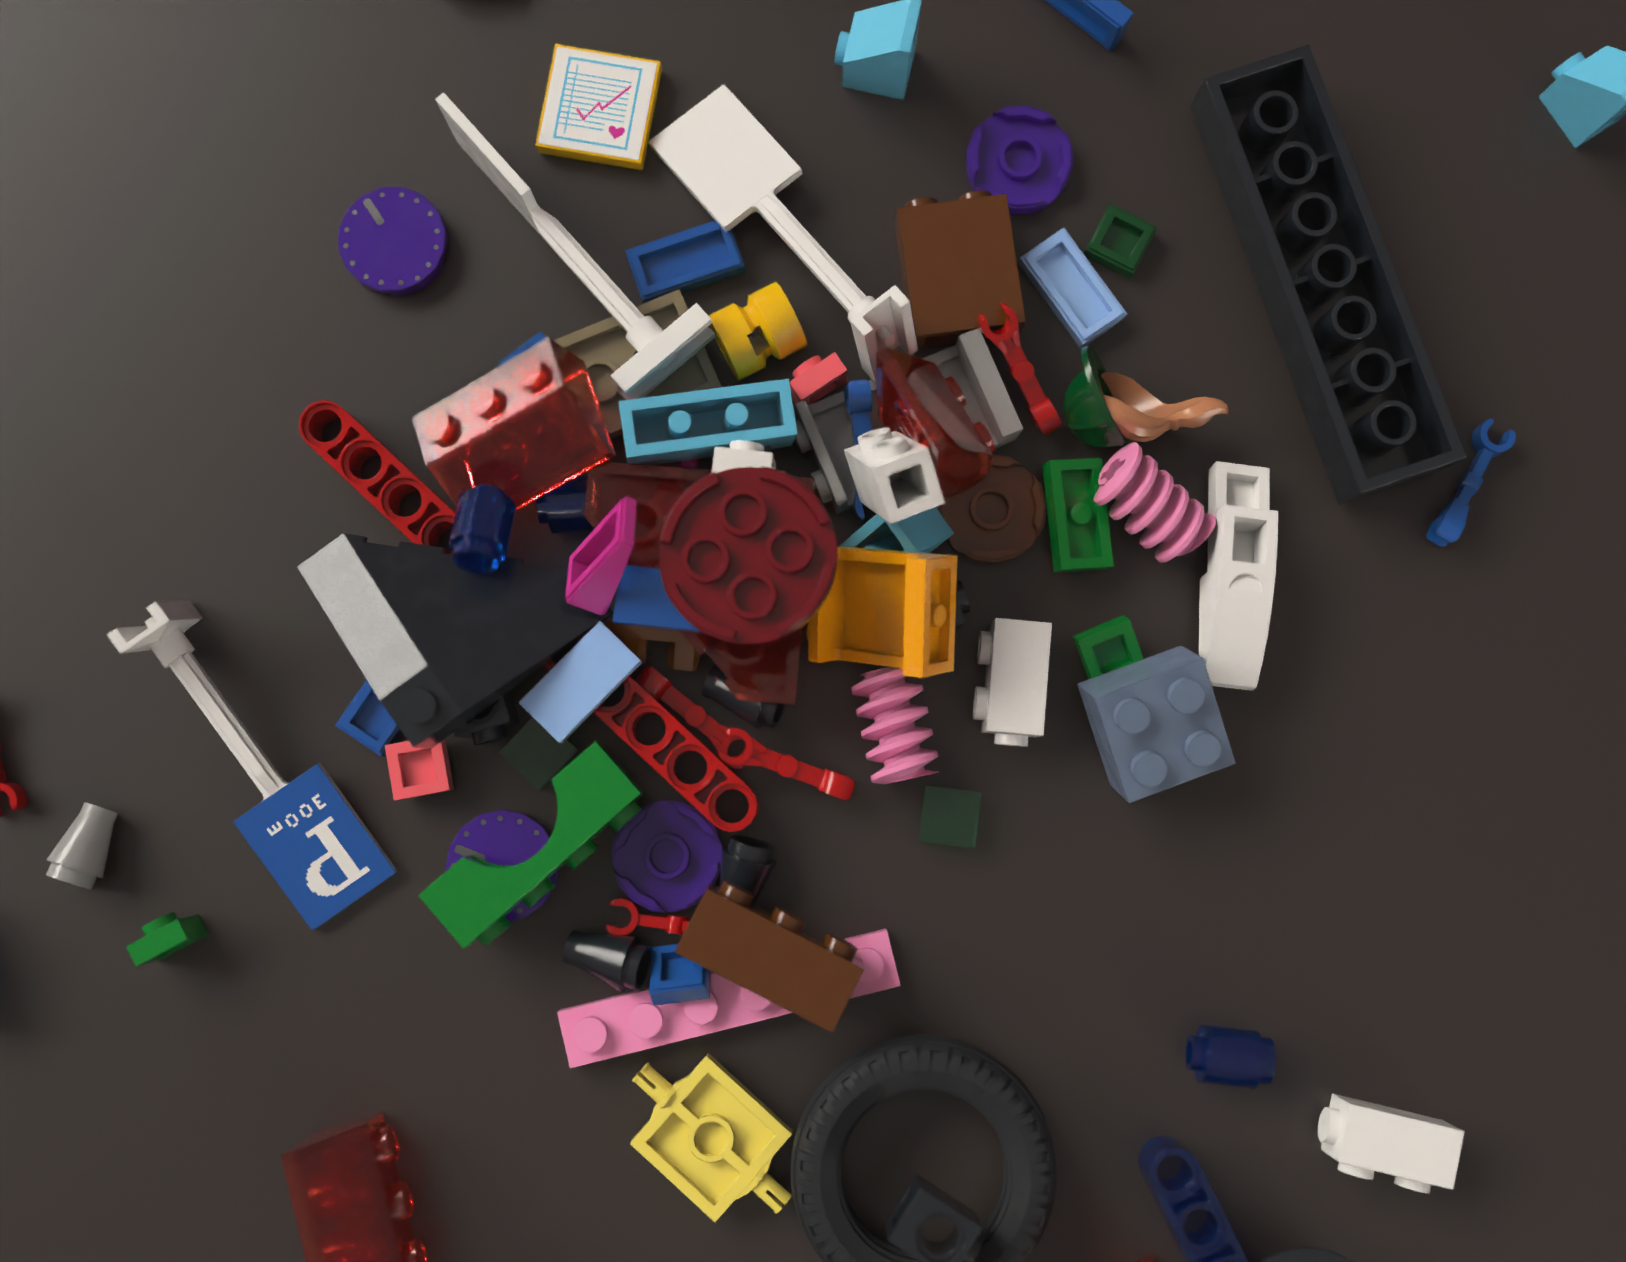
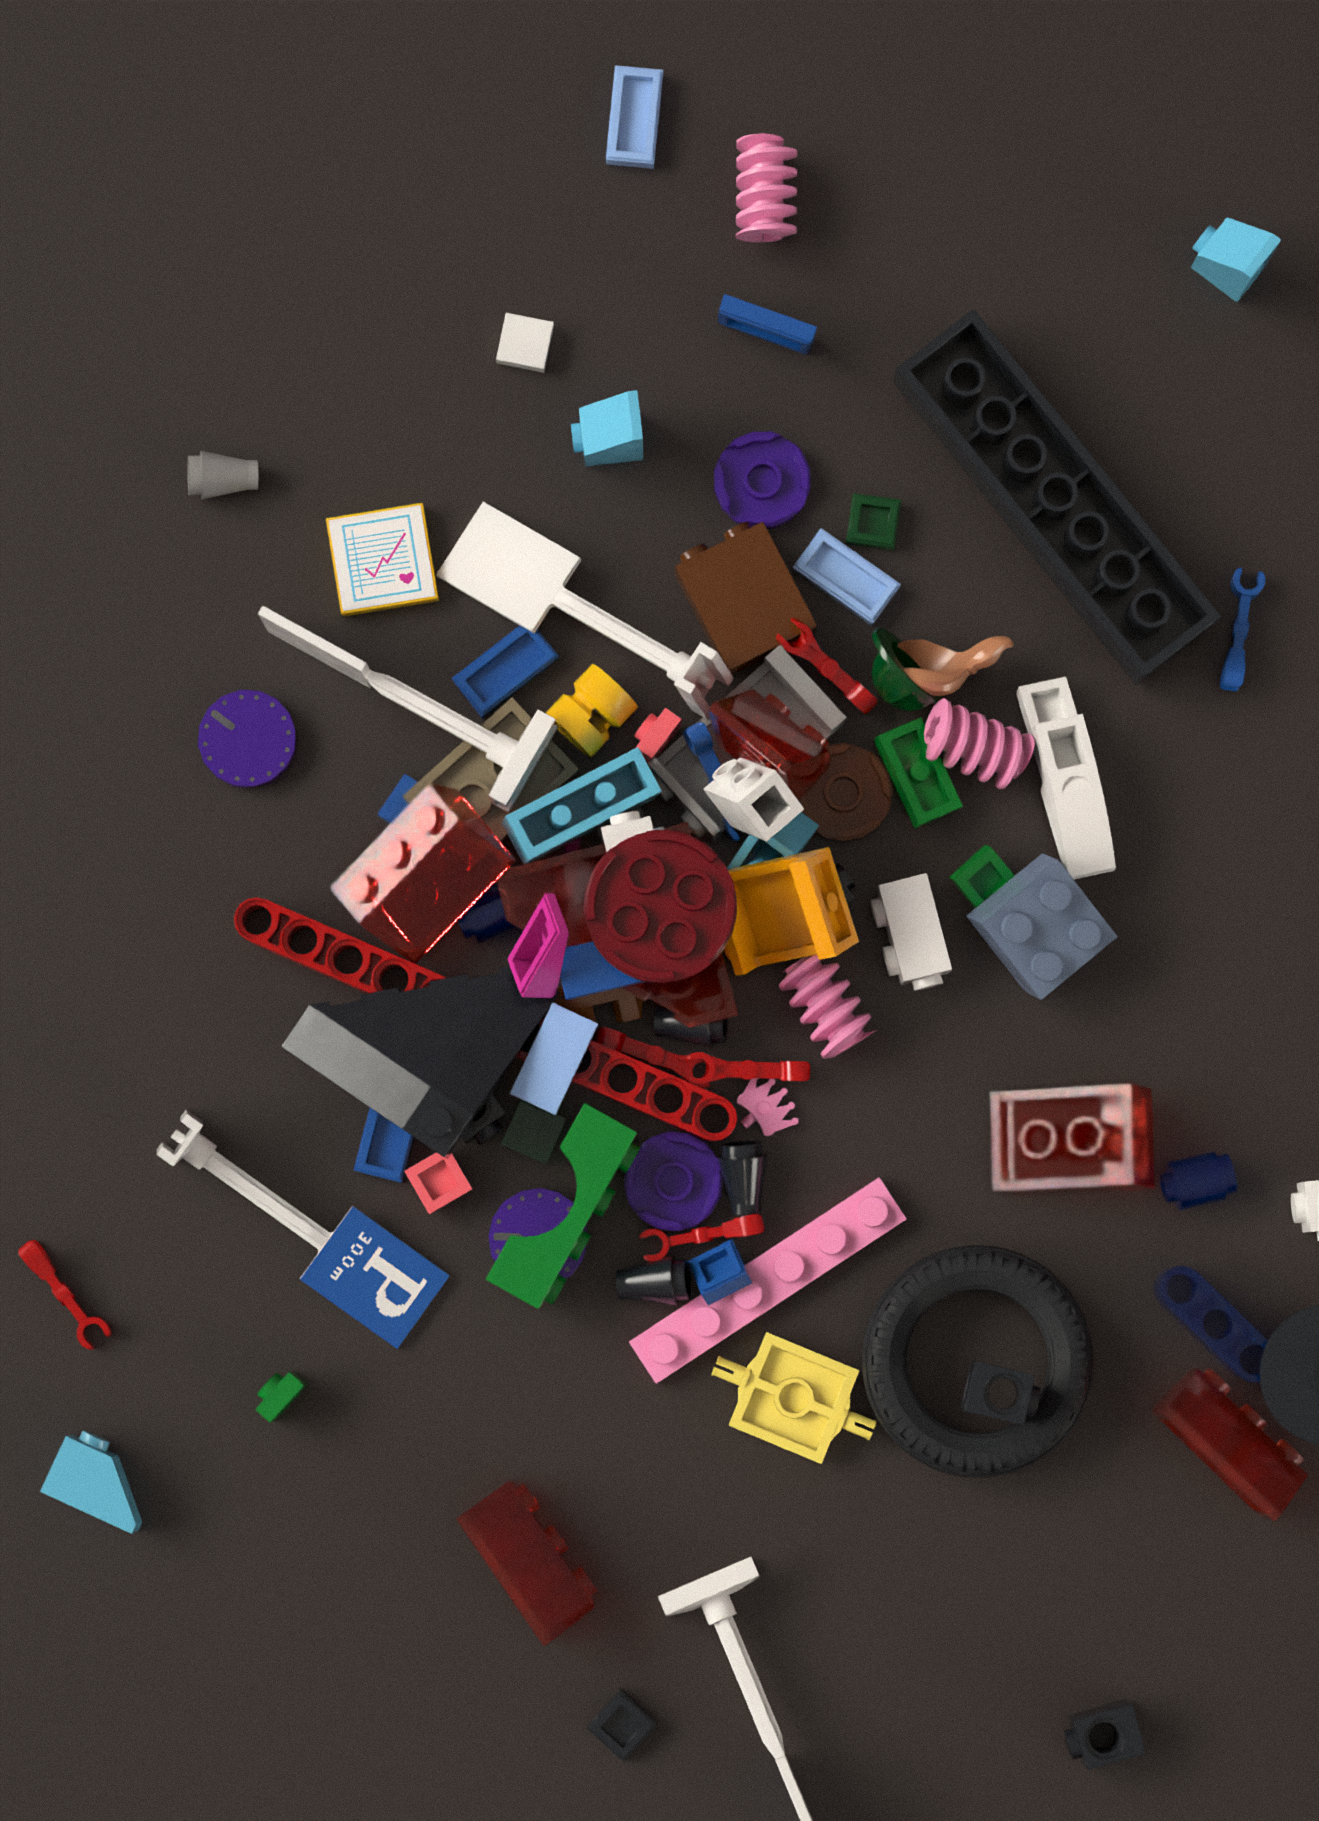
camera: 20 degrees left, 0 degrees up
(83, 848) = (180, 1347): light grey cone -> none
(481, 529) = (428, 960): clear blue brick -> none
(772, 954) = (791, 1225): reddish brown brick -> none
(791, 812) = (764, 1109): none -> bright pink piece
(949, 816) = (898, 1065): clear green tile -> none
(1109, 963) = (1072, 1139): none -> clear red slope

